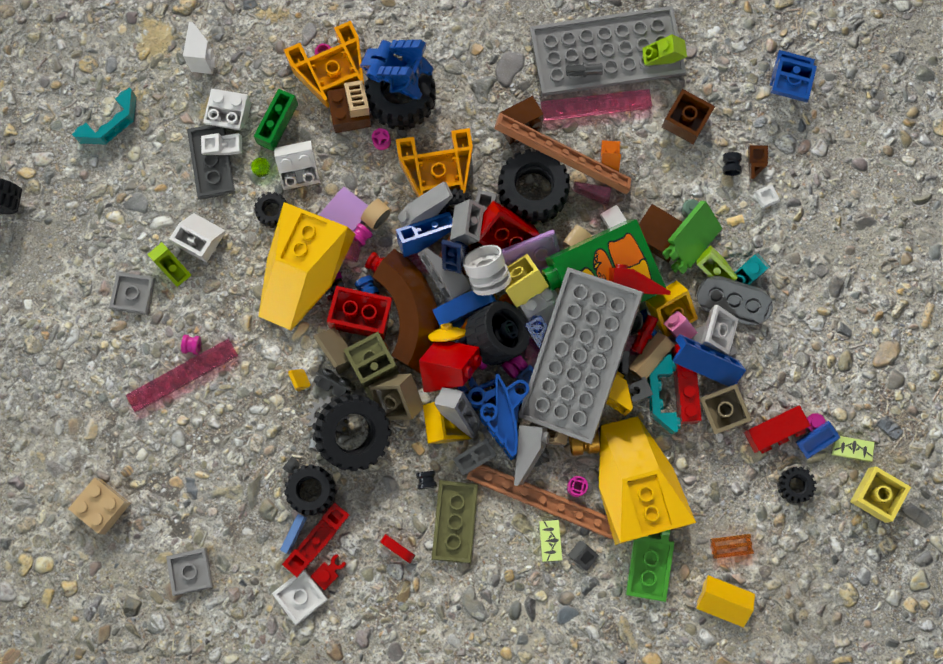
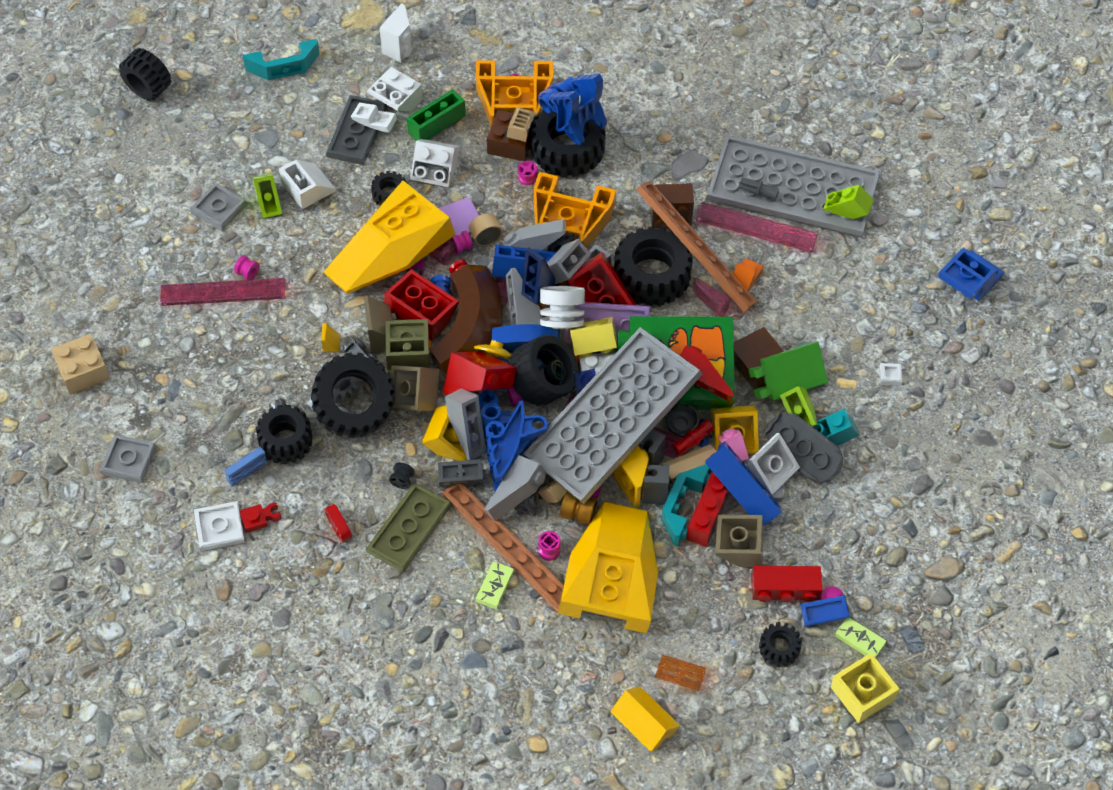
camera: 25 degrees right, 20 degrees down
(260, 167) = (399, 152): clear neon green tile -> none
(316, 540) = (266, 483): red slope -> none
(514, 366) = (548, 411): dark pink wheel -> none
(583, 555) = (521, 614): dark grey slope -> none
(650, 567) = (585, 651): bright green tile -> none
(688, 116) = (843, 268): reddish brown brick -> none
(732, 163) = (867, 330): black wheel -> none
(757, 159) = (898, 337): reddish brown slope -> none

